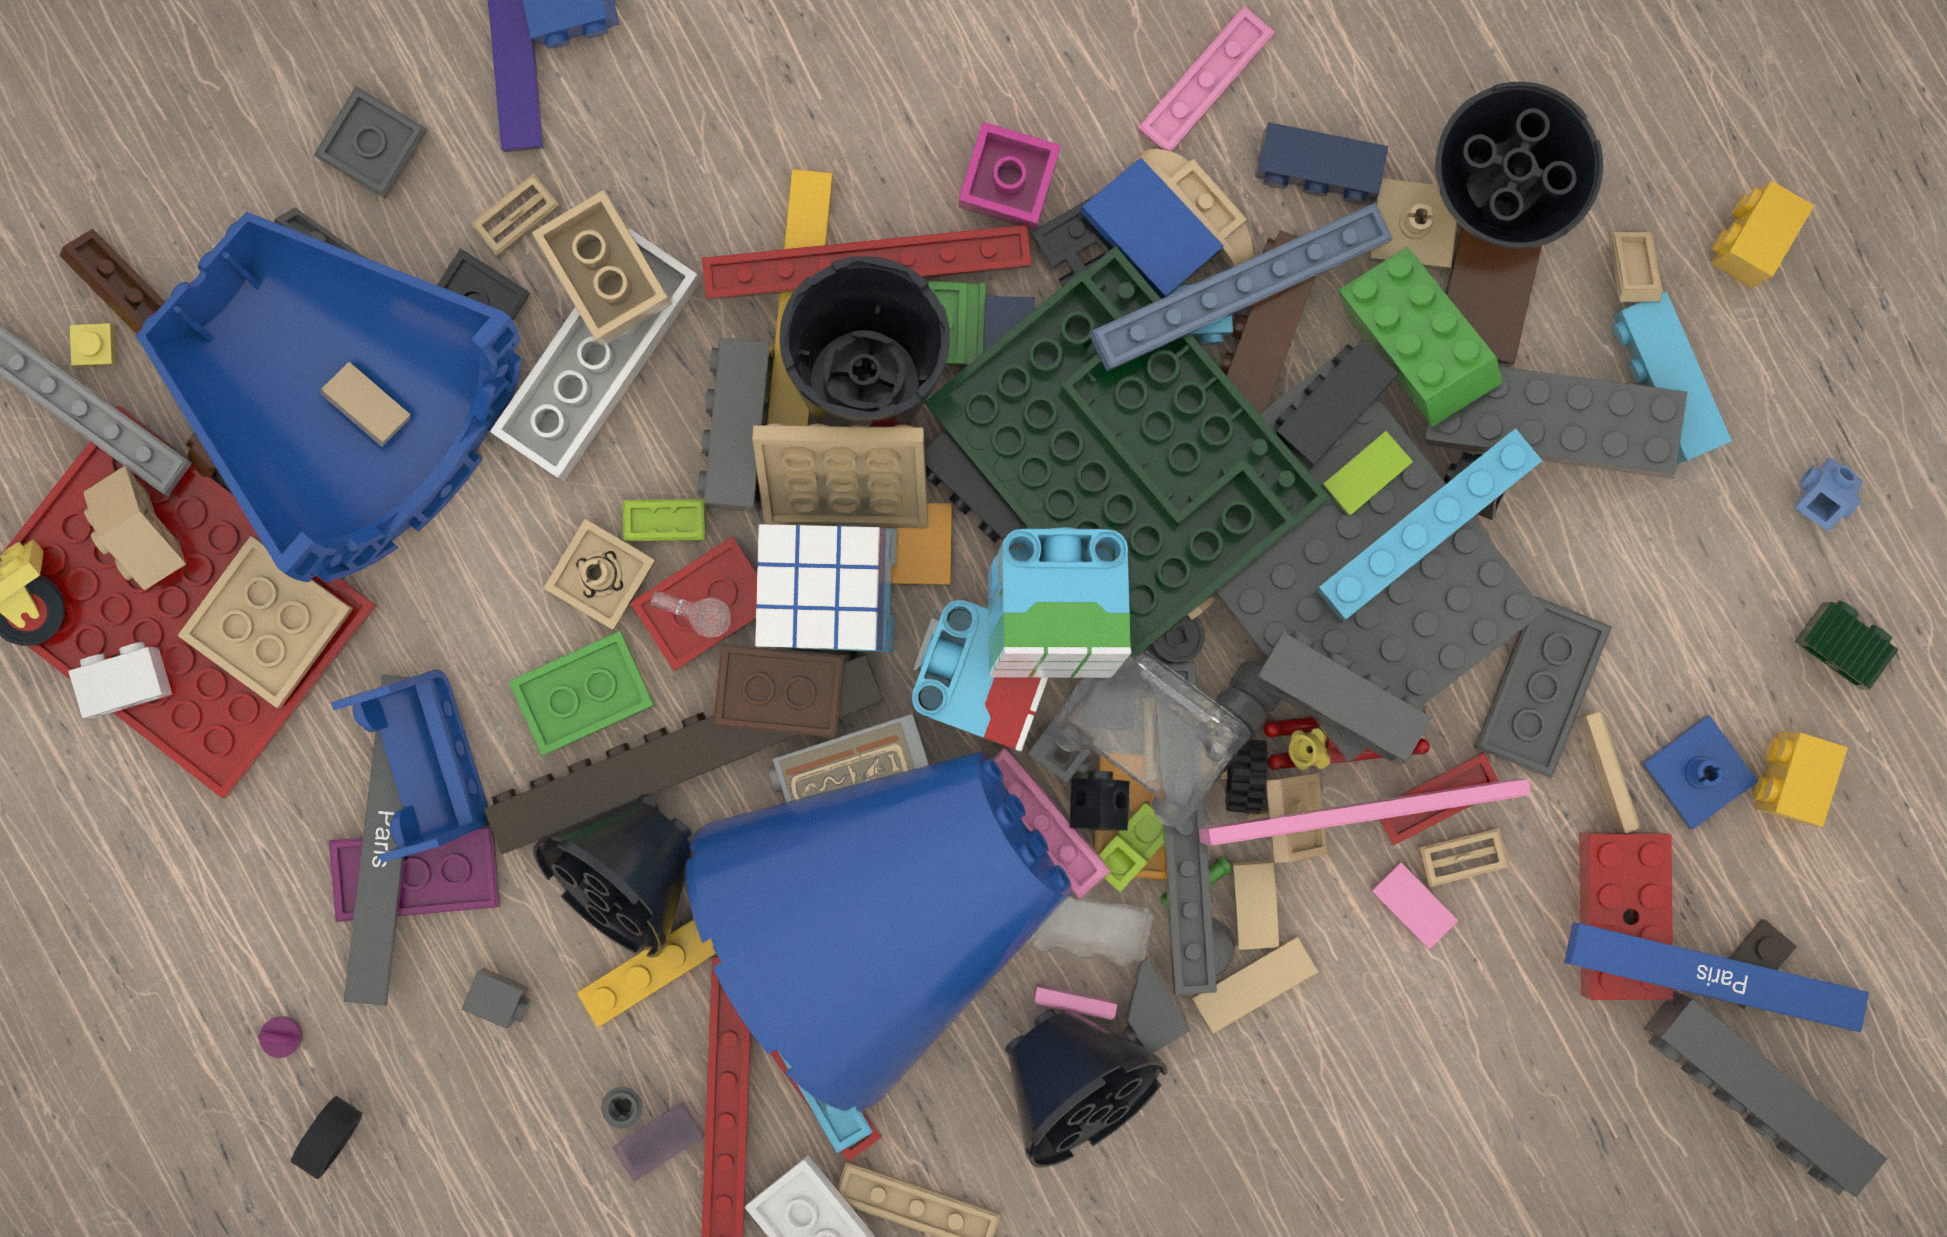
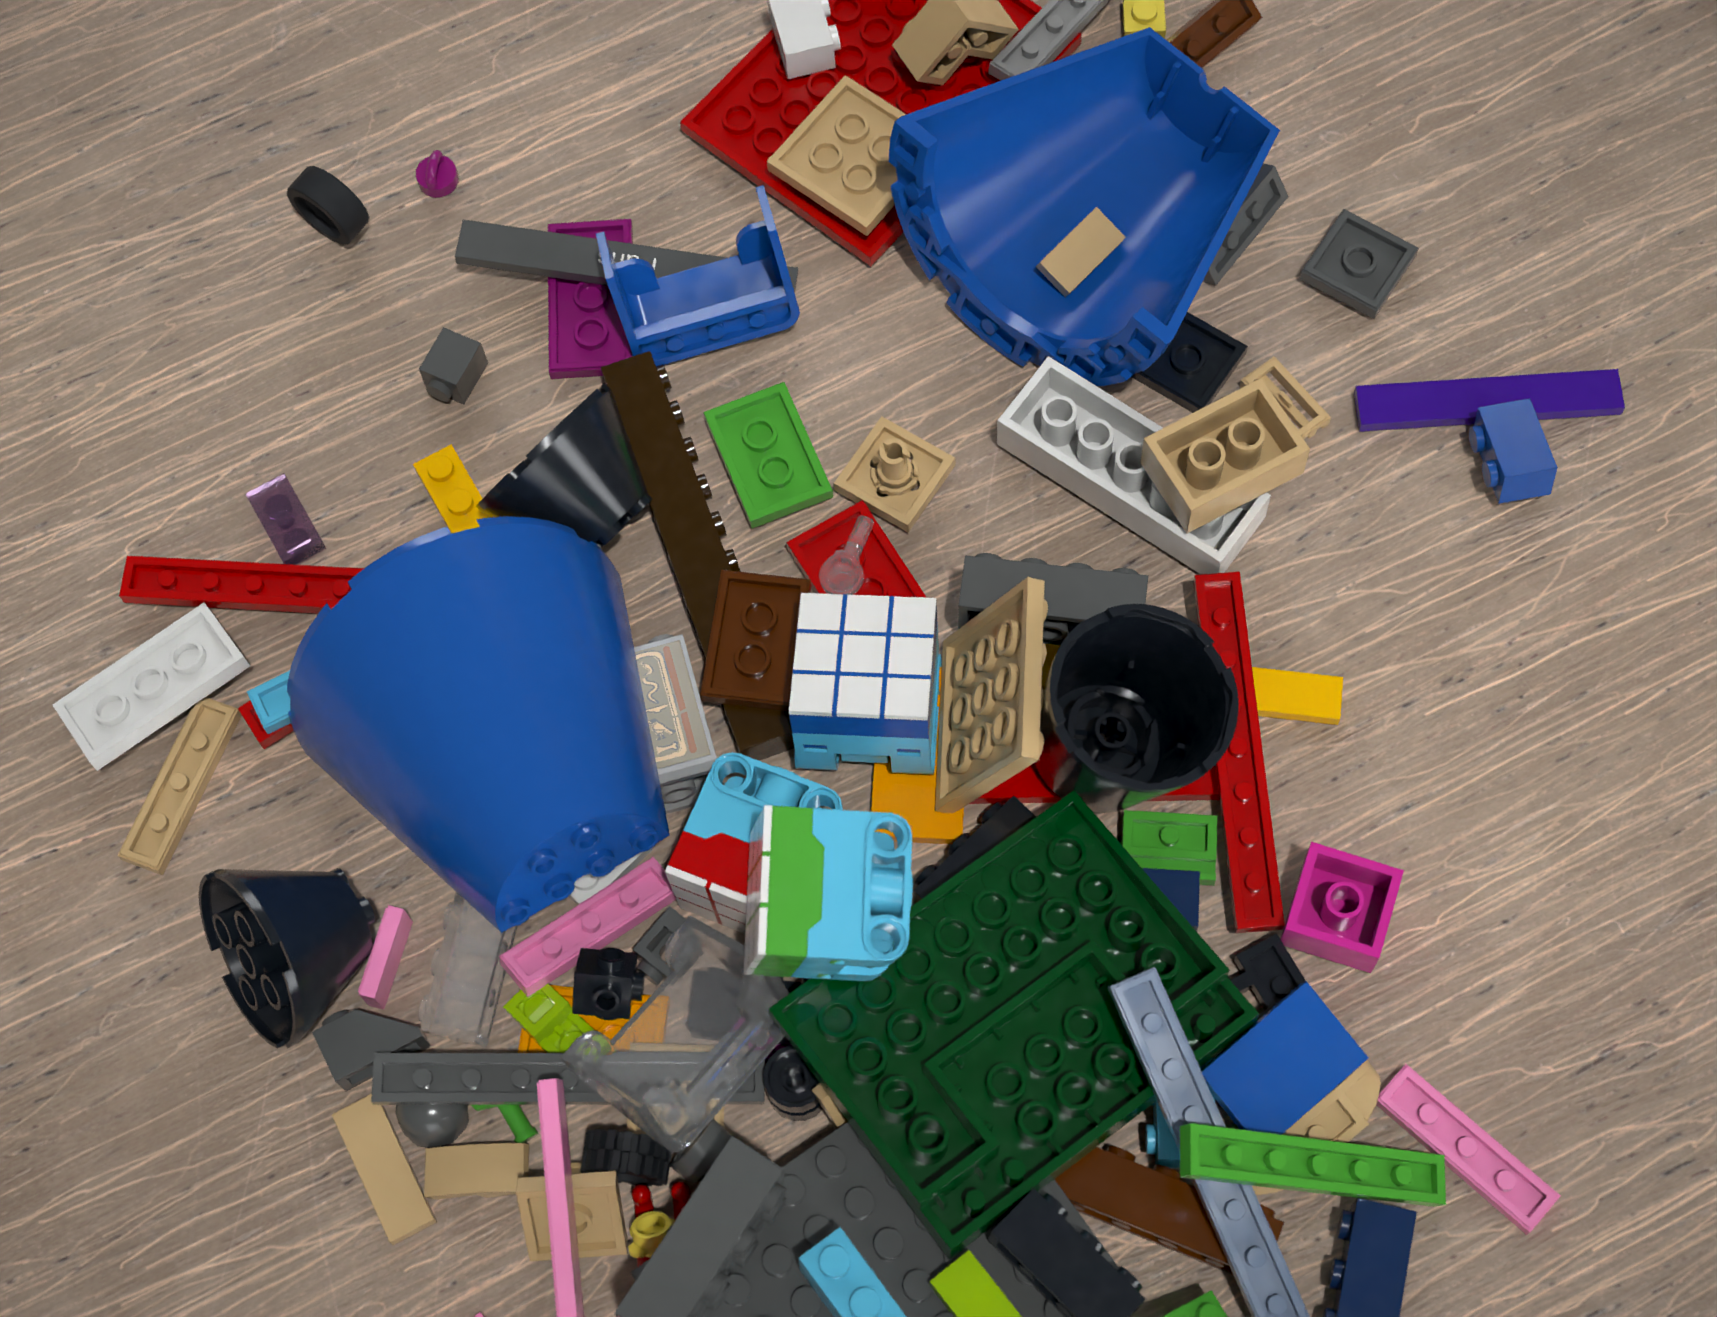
camera: 95 degrees right, 20 degrees down
(615, 1114) = (324, 480): dark grey cone -> none
(664, 520) = (950, 537): lime plate -> none
(1240, 205) = (1311, 1165): none -> bright green plate

